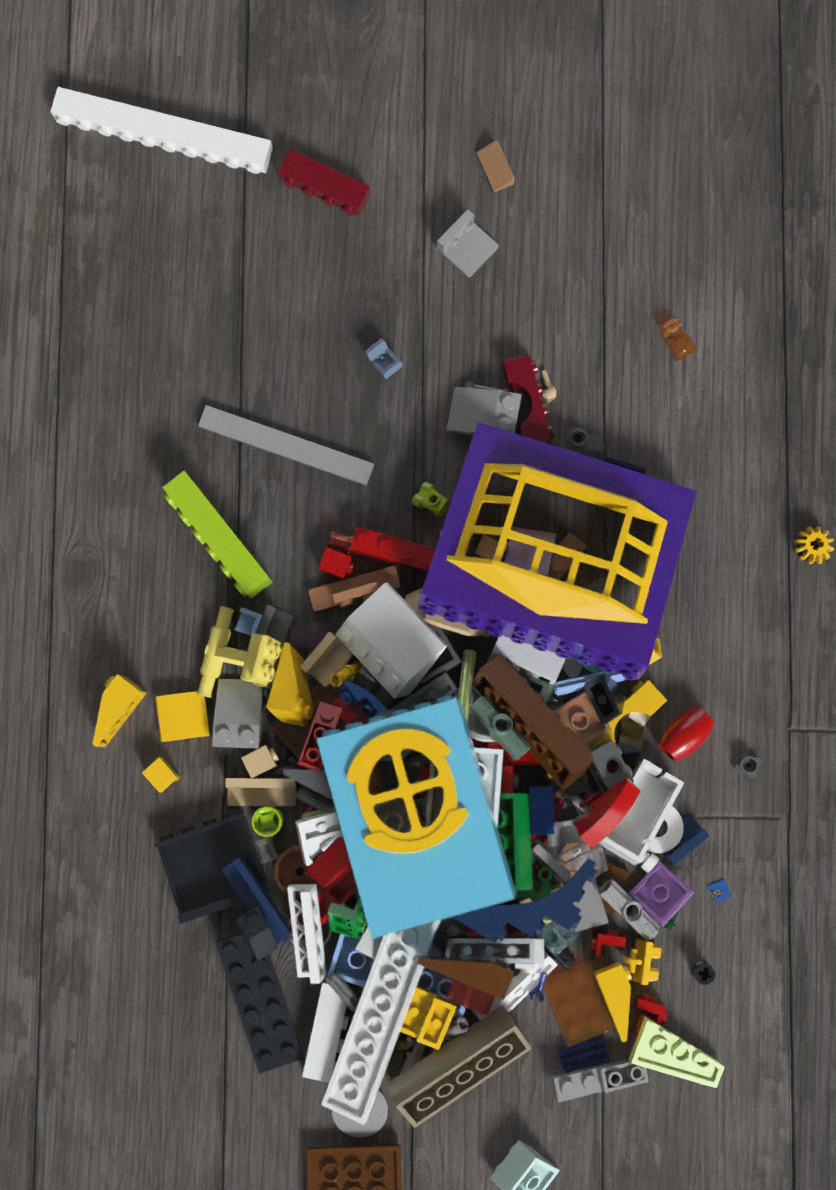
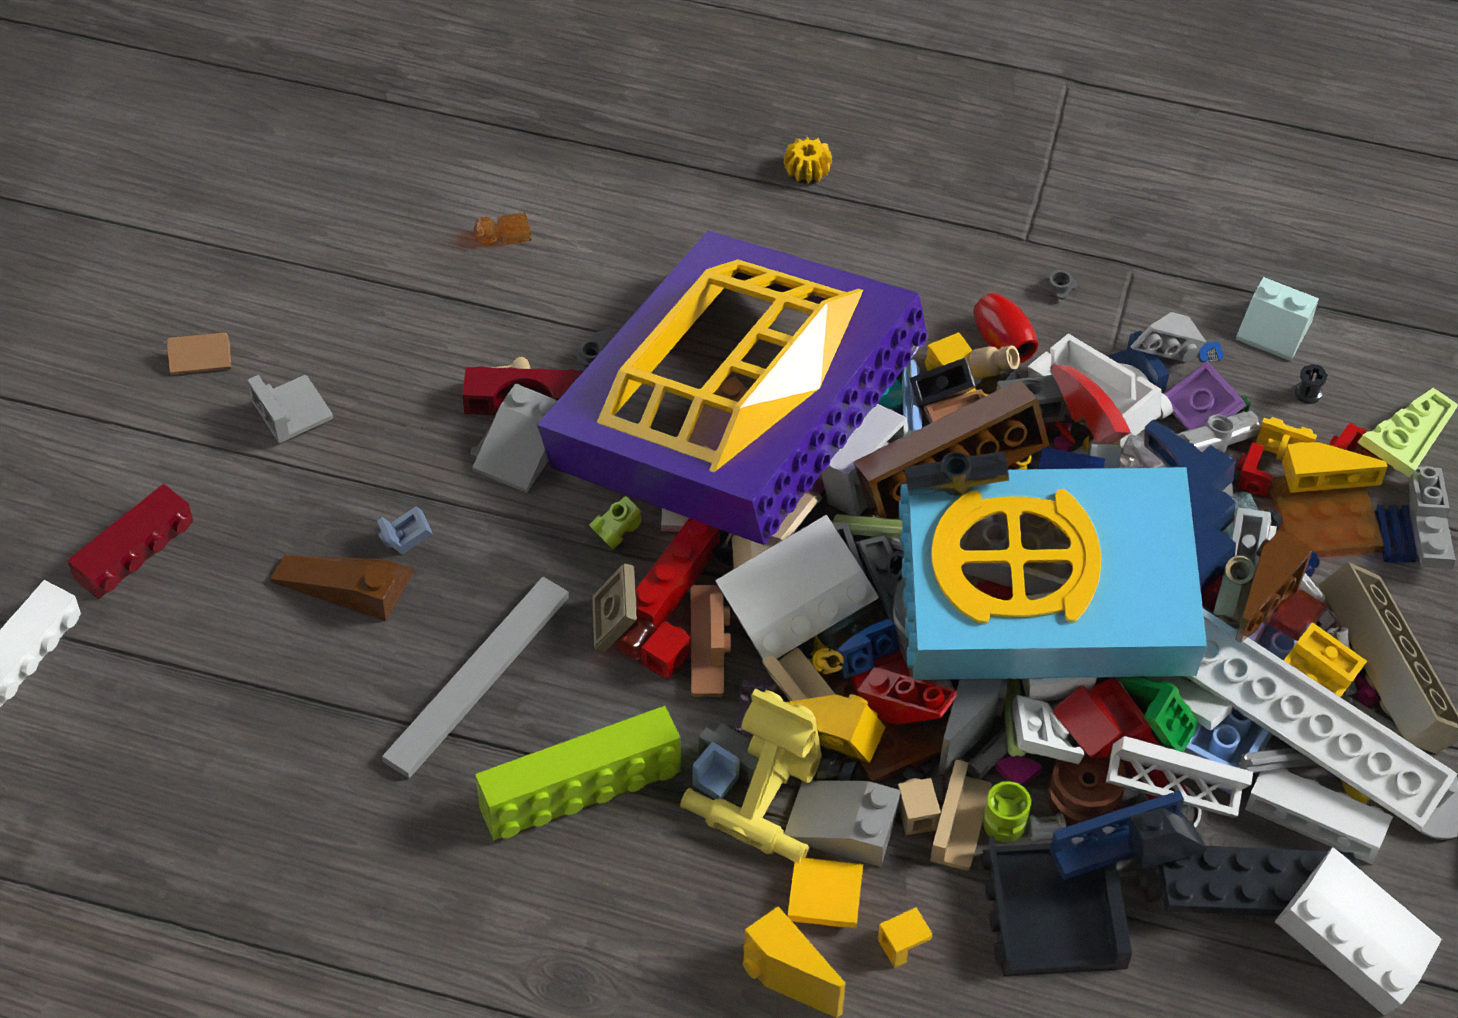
camera: 75 degrees left, 30 degrees down
(238, 1073) = (1360, 932): none -> white slope
(337, 340) = (353, 583): none -> reddish brown wedge
(353, 520) = (614, 607): none -> dark tan tile
(447, 719) = (956, 473): none -> black piece
(463, 946) = (1234, 592): none -> tan piece
(645, 729) = (990, 361): none -> tan piece
(710, 858) = (1171, 337): none -> light grey slope
(759, 937) = (1277, 319): none -> light aqua slope

